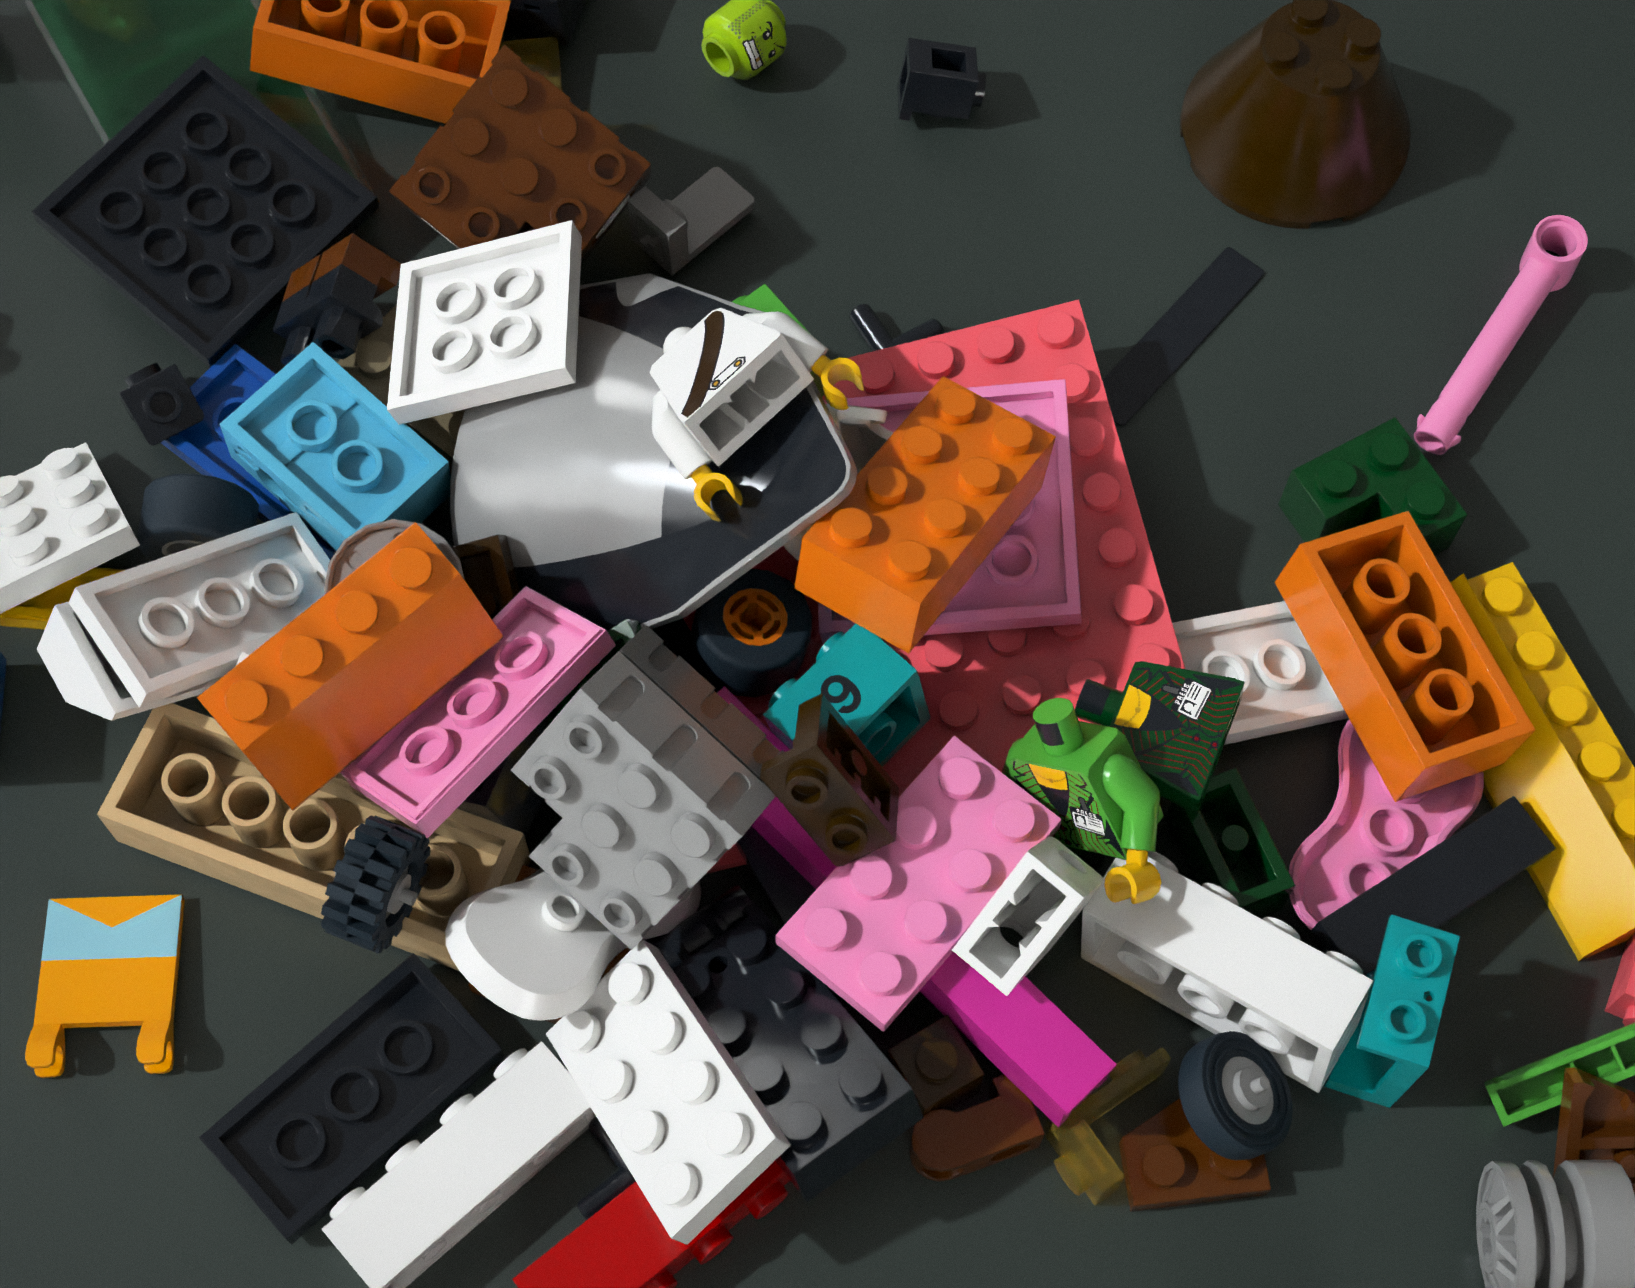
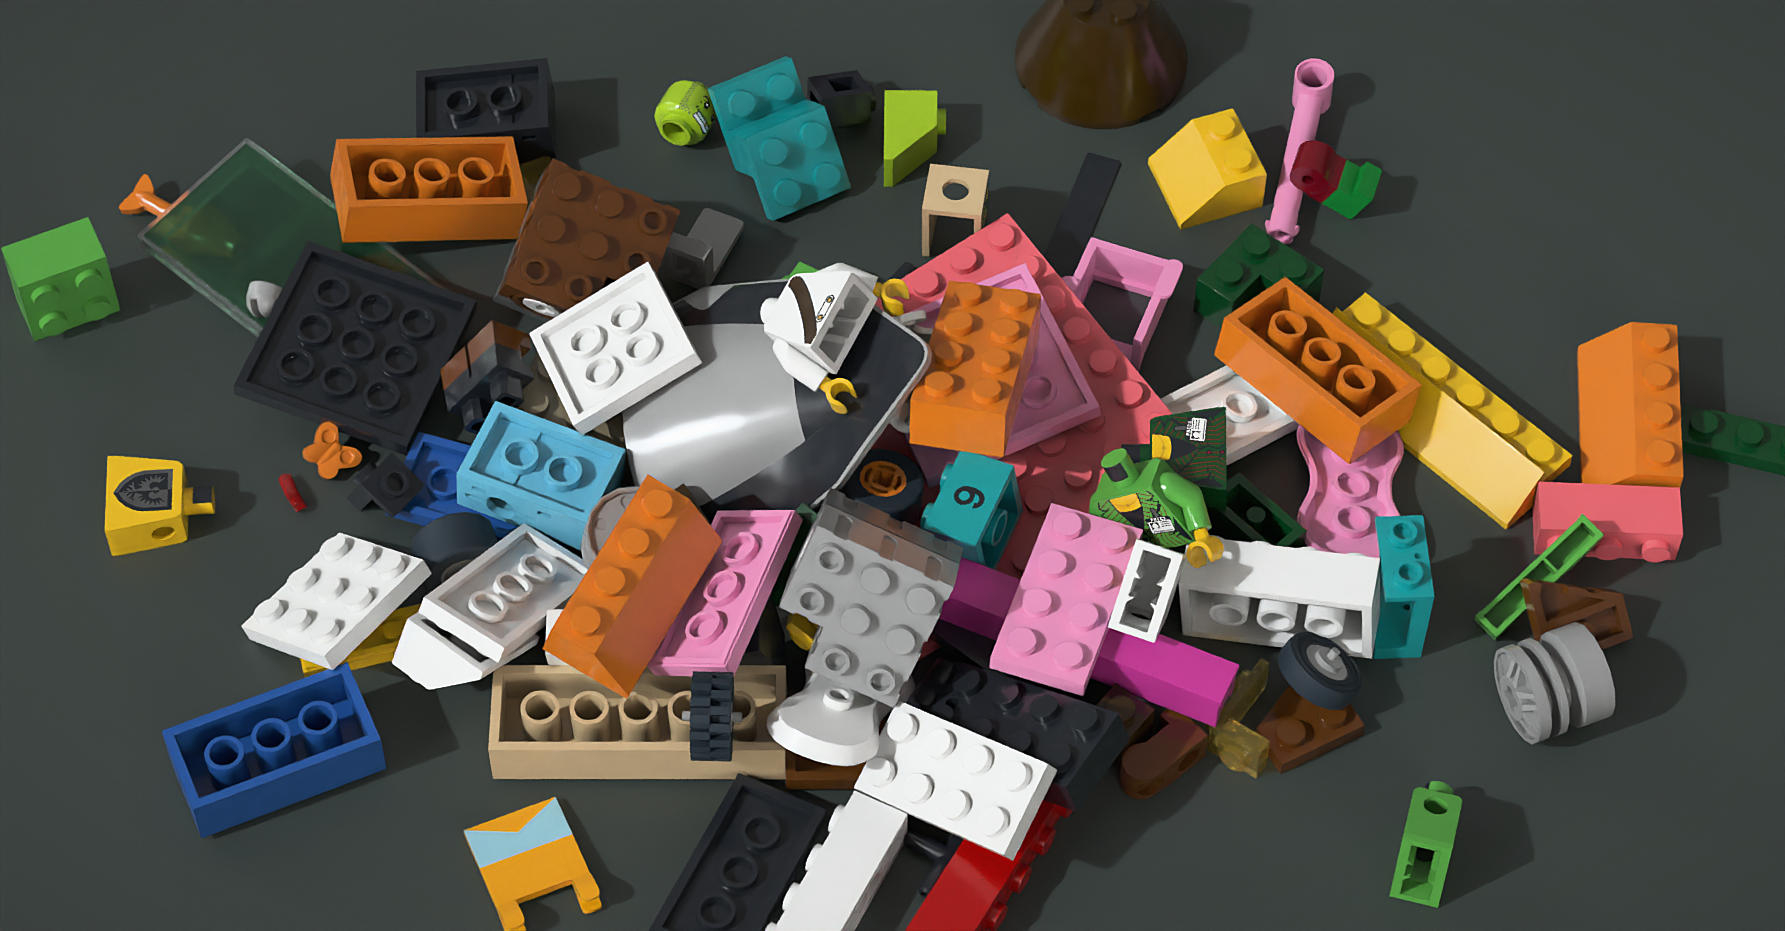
camera: 20 degrees left, 10 degrees down
(59, 377) = (295, 497): none -> red leg
(118, 110) = (262, 298): none -> light grey hinge
(123, 335) = (329, 452): none -> orange piece
(834, 785) = (992, 551): dark brown bracket -> none
(840, 105) = (779, 138): none -> teal bracket
(1008, 148) = (910, 131): none -> lime slope
(1041, 278) = (973, 206): none -> tan piece
(1213, 426) = (1132, 272): none -> bright pink piece
(1372, 323) = (1209, 170): none -> yellow slope
(1438, 882) = (1405, 493): black tile -> none
(1531, 388) = (1333, 178): none -> leg

